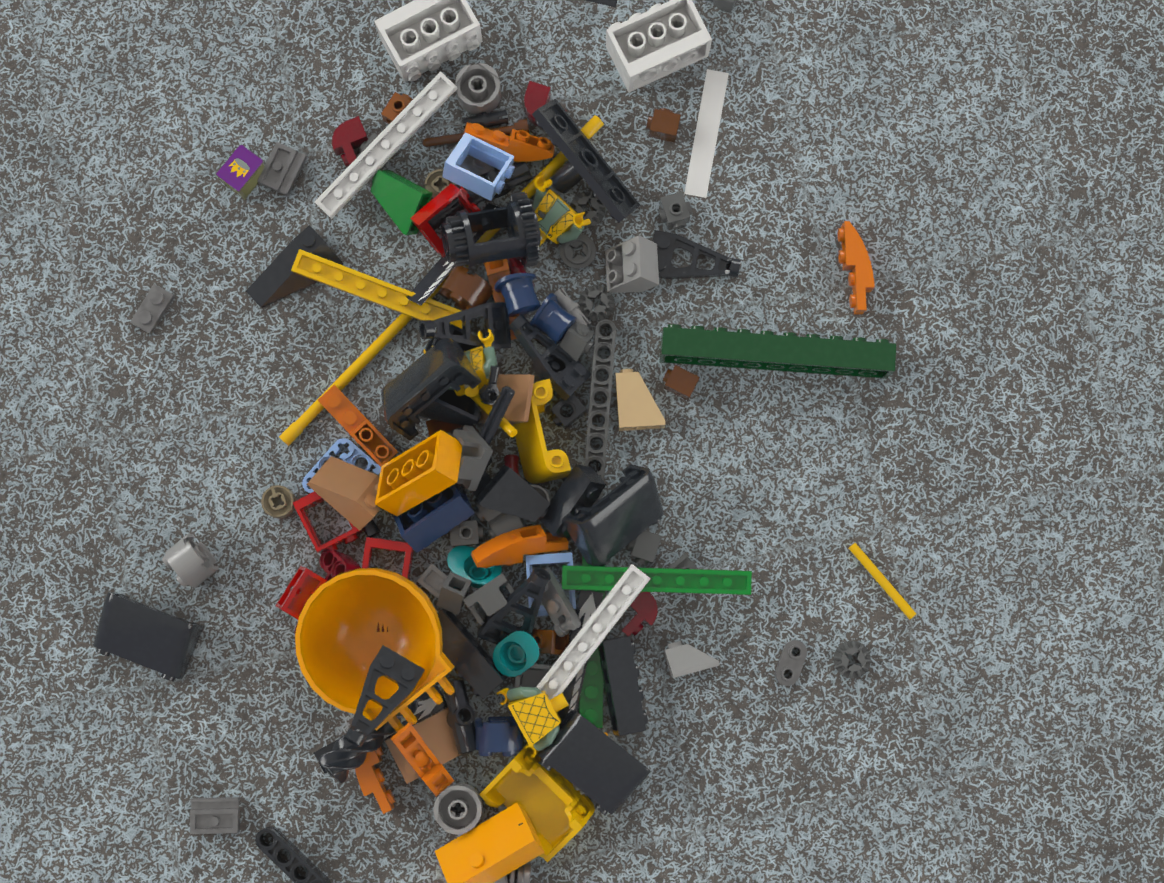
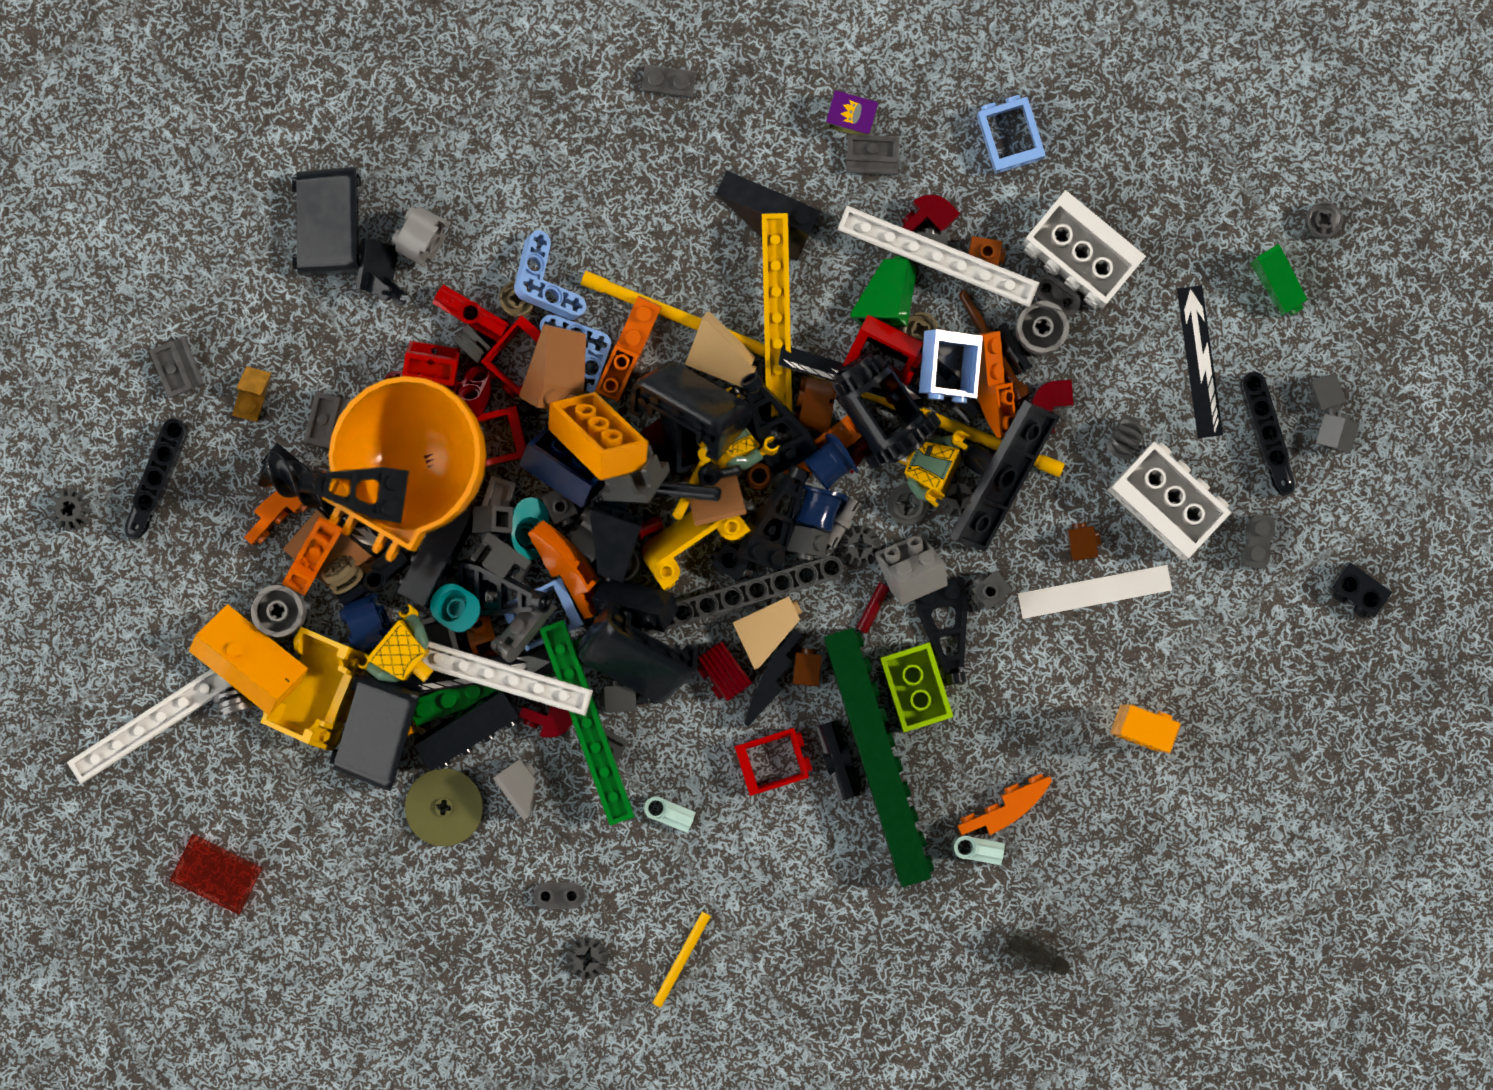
camera: 70 degrees right, 5 degrees up
(204, 609) = (378, 270): none -> black plate
(262, 555) = (456, 305): none -> red piece
(265, 759) = (251, 394): none -> pearl gold slope
(269, 480) = (535, 281): none -> light blue beam
(300, 554) = (471, 344): none -> dark grey wheel
(311, 705) = (323, 418): none -> flat silver plate
(329, 74) = (1019, 159): none -> light blue window
(392, 351) = (719, 352): none -> tan slope
(448, 740) = (342, 574): none -> dark tan wheel
(455, 64) = (1058, 293): none -> flat silver plate
(507, 353) = (759, 468): none -> reddish brown brick
(593, 57) = (1126, 437): none -> dark grey gear
(650, 311) = (873, 608): none -> dark red piece
(657, 452) = (723, 672): none -> dark red brick
(682, 420) = (767, 687): none -> black slope
(686, 749) = (460, 794): none -> olive piece
(731, 300) = (916, 687): none -> lime brick
(757, 416) = (803, 762): none -> red window
(758, 542) = (671, 814): none -> light aqua piece
(765, 387) = (838, 760): none -> black piece
(837, 125) = (1145, 728): none -> light orange brick
(881, 302) = (981, 850): none -> light aqua piece
(982, 290) = (1033, 952): none -> clear smoke brick

